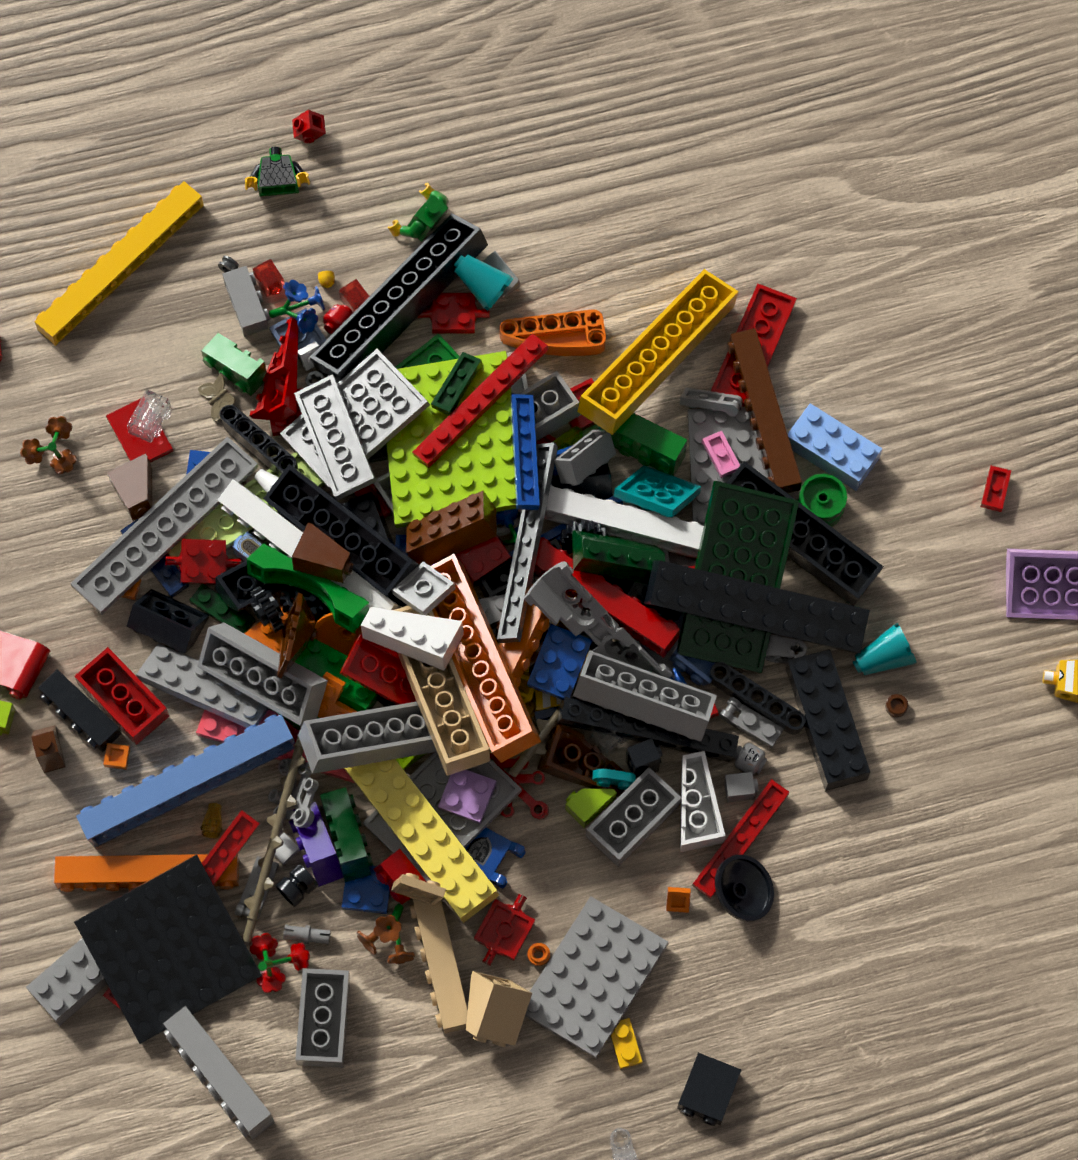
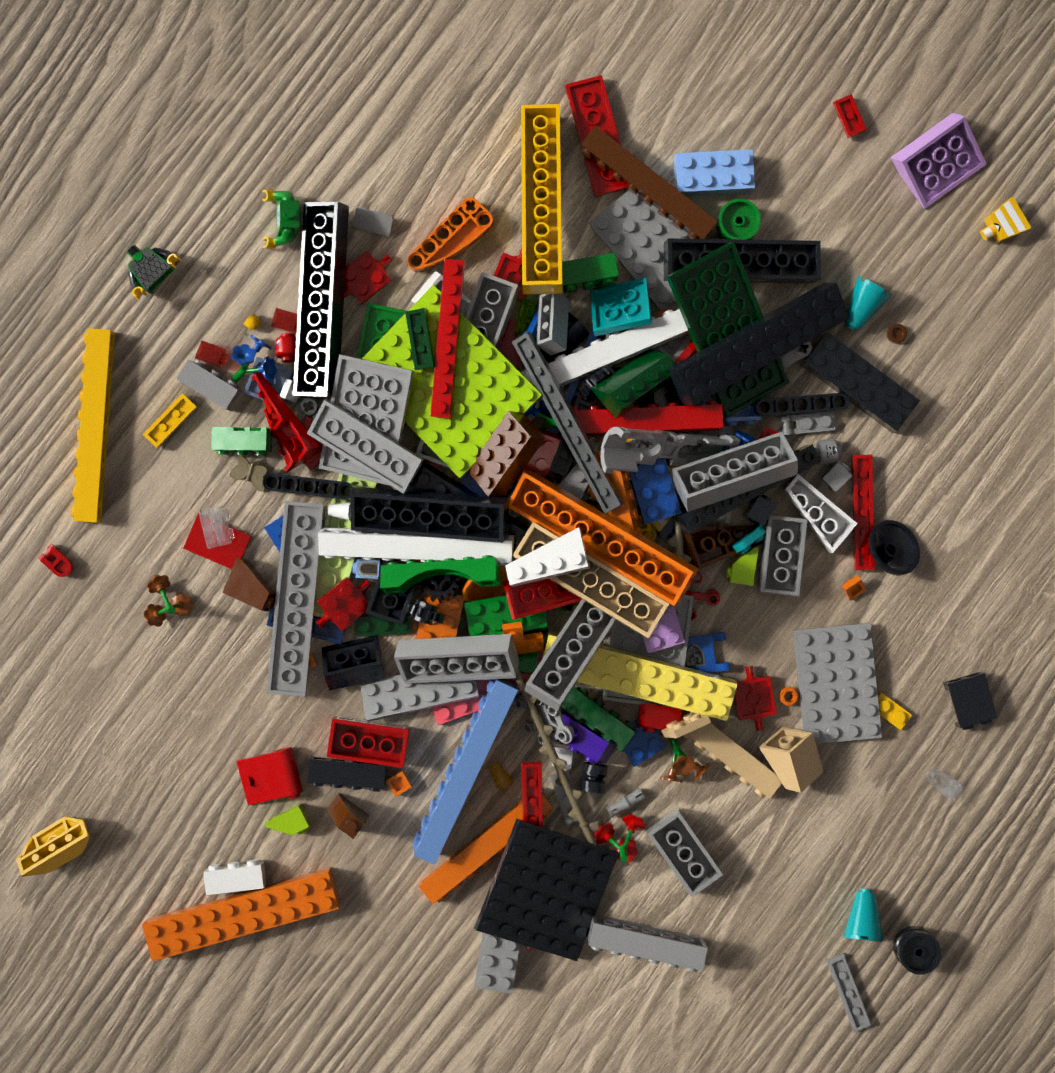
camera: 40 degrees left, 20 degrees up
(187, 305) = (170, 420): none -> yellow plate
(227, 264) = (173, 366): dark grey bush -> none
(296, 634) = (461, 618): reddish brown wedge -> none
(308, 126) = (141, 212): red brick -> none
(321, 556) = (433, 548): reddish brown slope -> none
(423, 589) = (525, 517): light grey plate -> none
(482, 280) = (370, 239): teal cone -> none
(525, 452) = (512, 356): blue plate -> none
(711, 400) = (602, 204): light grey plate -> none
(721, 454) = (641, 241): bright pink plate -> none

